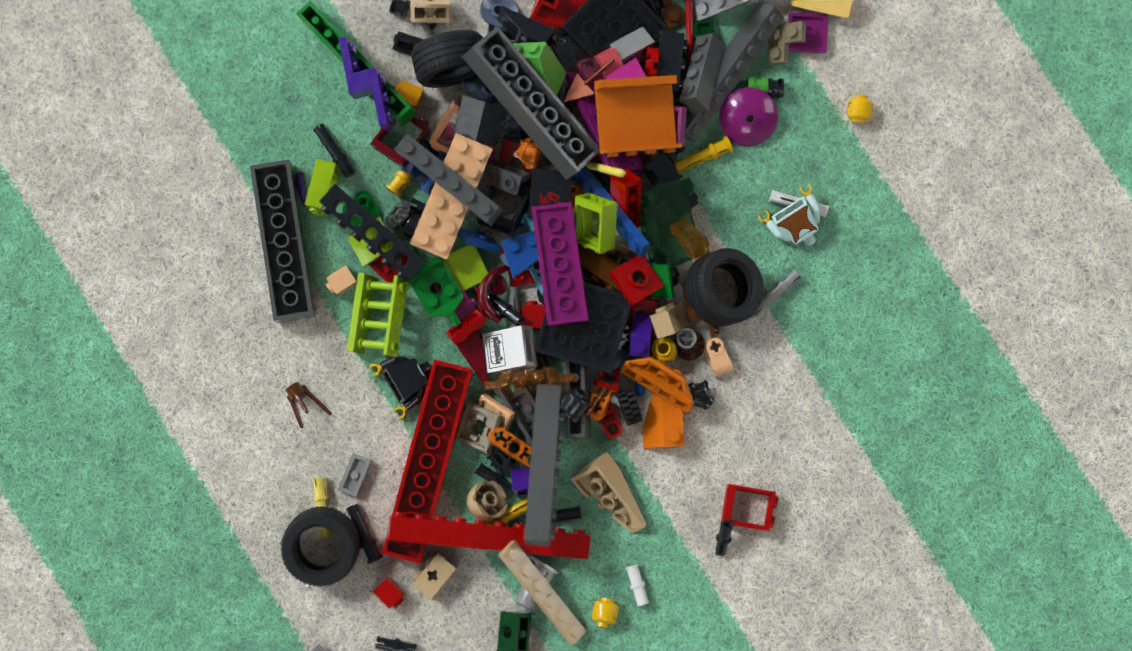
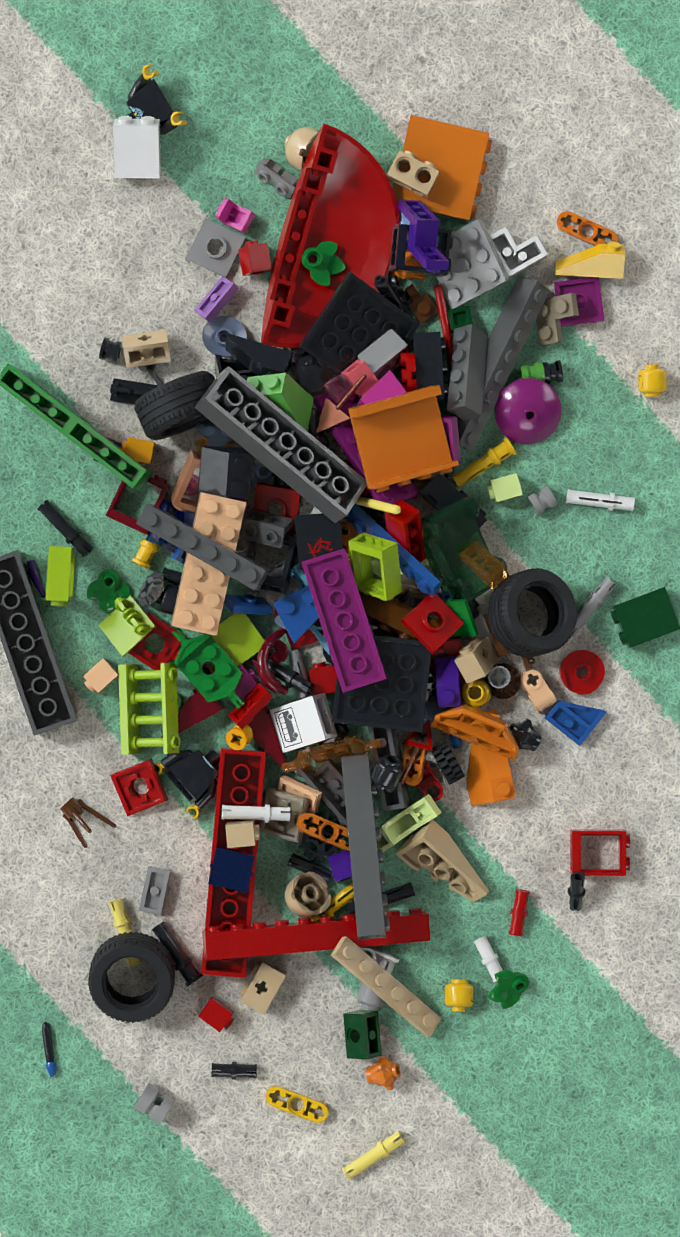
camera: 10 degrees left, 5 degrees up
(236, 614) = (48, 1049): none -> black piece
(337, 196) = (81, 585): black brick -> none
(345, 377) = (130, 799): none -> red piece
(365, 83) = (90, 452): dark purple bracket -> none
(418, 324) = (196, 710): none -> dark red slope
(424, 466) = (231, 869): none -> clear blue piece
(438, 434) = (242, 833): none -> tan brick
(454, 420) = (256, 813): none -> white pin
(456, 350) = (236, 732): none -> light orange wheel
(528, 153) = (286, 499): orange rock -> none
(585, 451) = (407, 821): none -> yellowish green arch
(647, 615) = (507, 989): none -> green plate
(670, 549) = (519, 912): none -> red pin
(718, 179) = (504, 488): none -> yellowish green brick
(745, 388) = (574, 720): none -> blue wing
(749, 195) = (542, 500): none -> light grey wheel
(750, 341) = (592, 679): none -> red plate
(796, 221) = (600, 522): light aqua torso -> none
(821, 310) = (645, 618): none -> dark green panel

